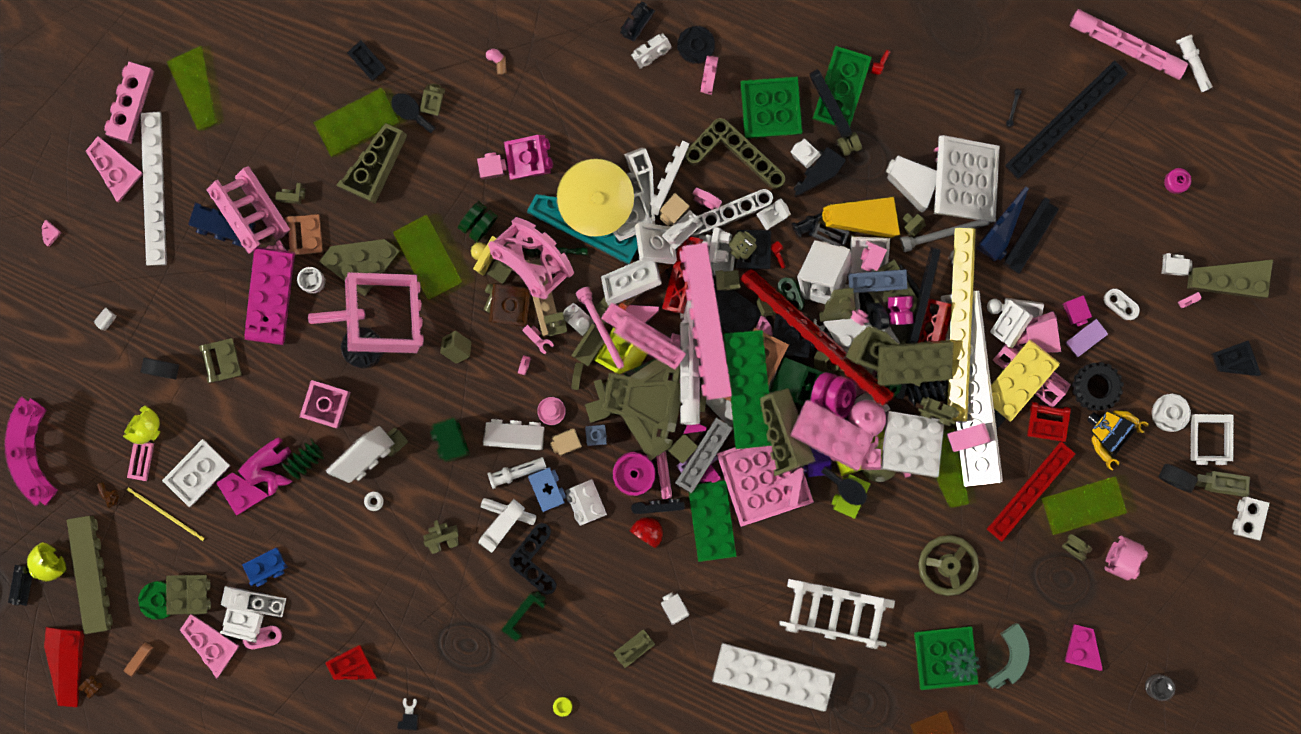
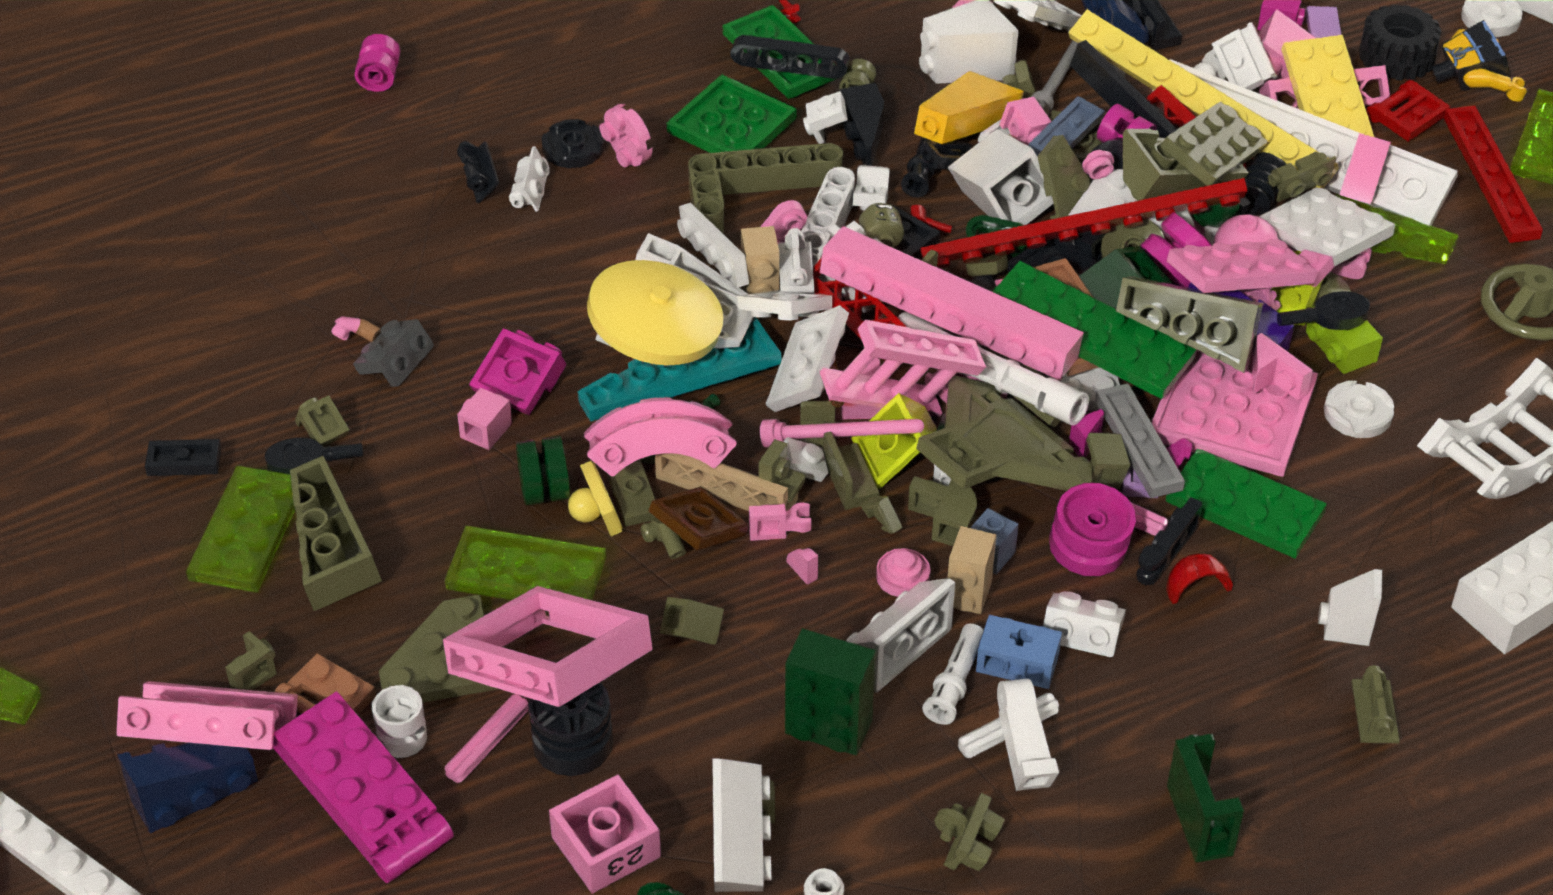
camera: 50 degrees left, 40 degrees down
(497, 90) = (395, 351): none -> dark grey bracket
(527, 556) = (1105, 749): black beam -> none
(562, 706) = (1401, 865): neon yellow tile -> none
(811, 531) = (1359, 409): none -> white tile

